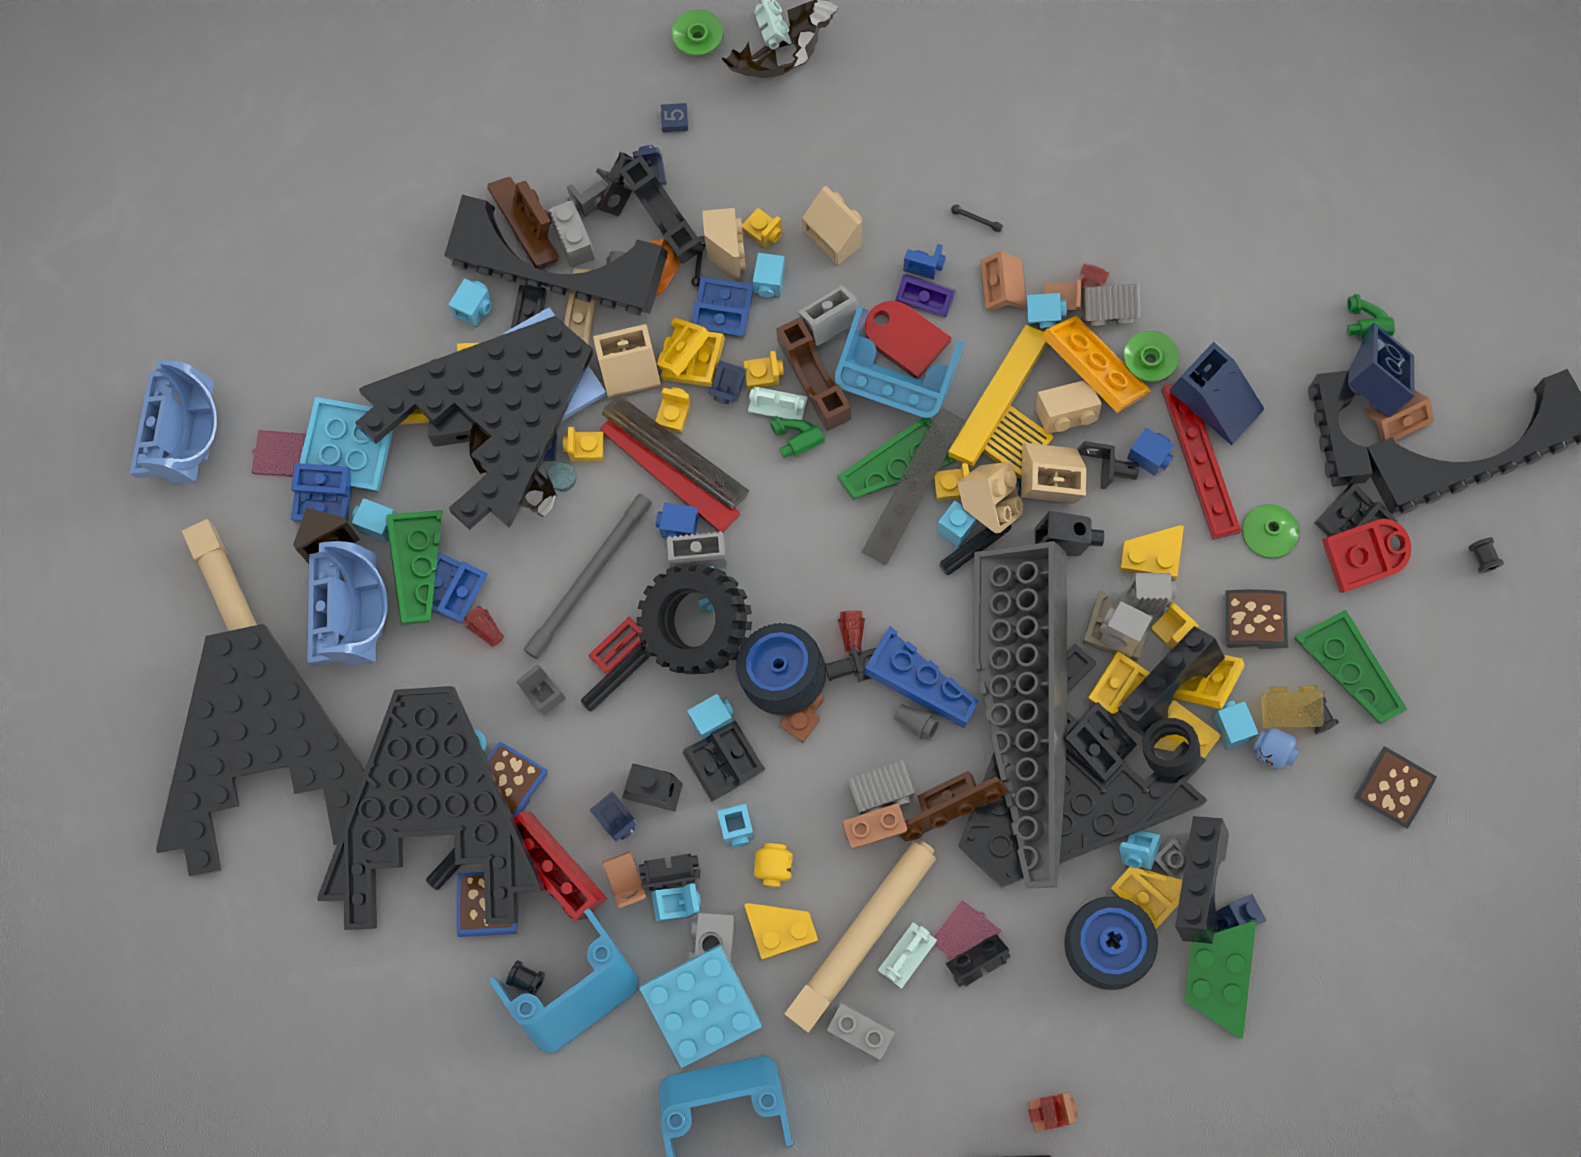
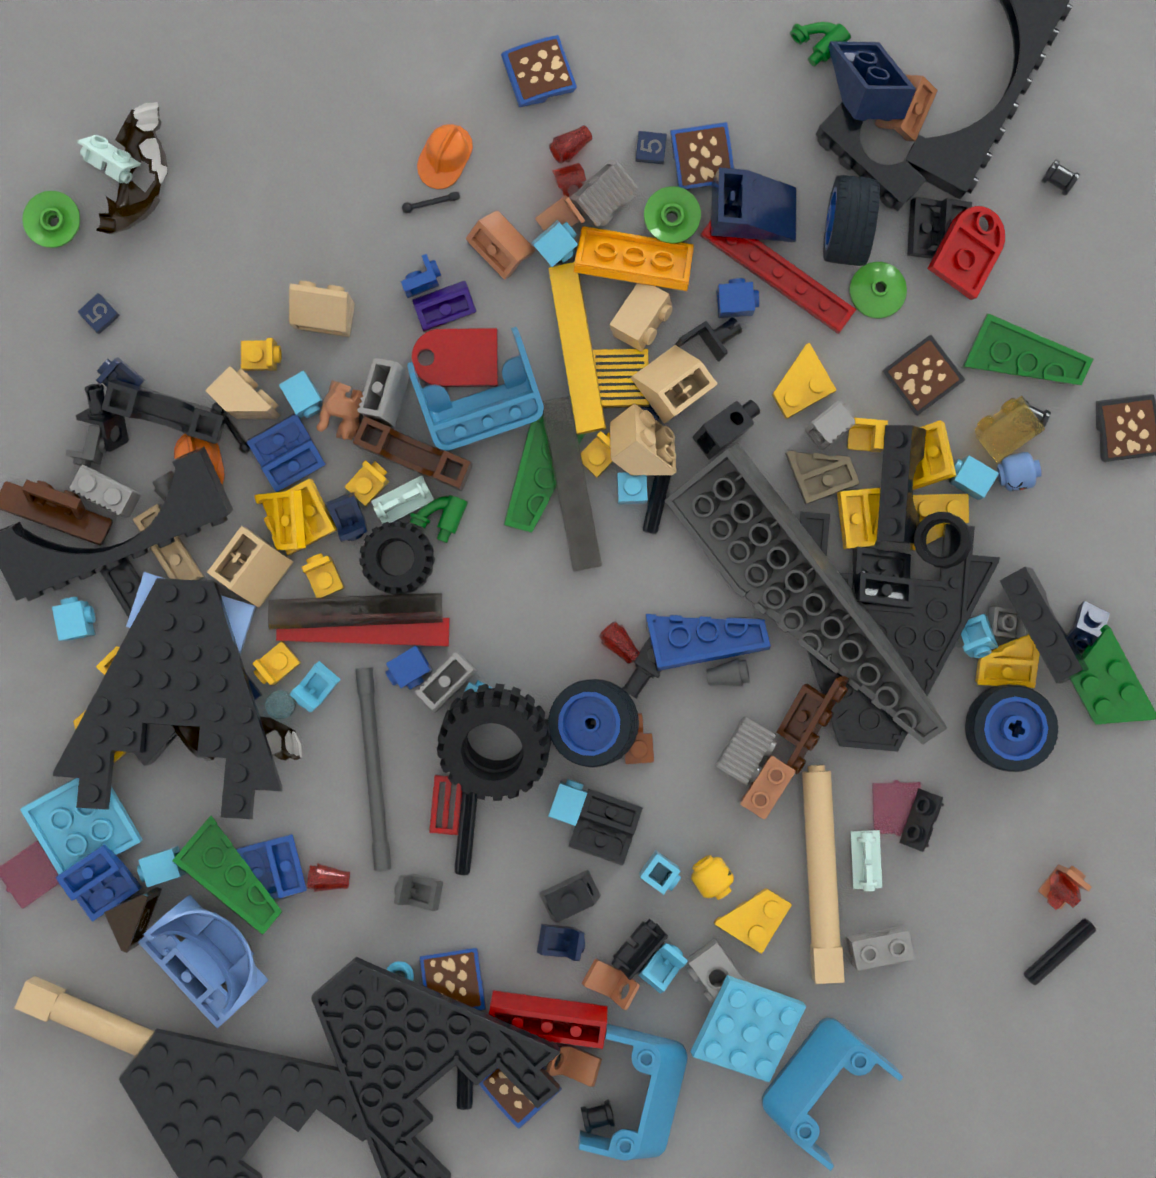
camera: 45 degrees left, 15 degrees up
(542, 921) = (576, 1065): none -> nougat bracket
(598, 482) = (315, 687): none -> medium azure bracket
(733, 417) = (373, 549): none -> black tyre
(788, 301) = (338, 405): none -> nougat animal
(1013, 195) = (444, 156): none -> orange piece
(1113, 252) = (568, 145): none -> clear red cone
(1124, 628) = (837, 474): light grey brick -> none
(1132, 187) = (538, 71): none -> slope
(1174, 300) = (651, 147): none -> dark blue tile
(1208, 325) = (700, 153): none -> reddish brown slope
(1287, 455) = (851, 220): none -> black wheel

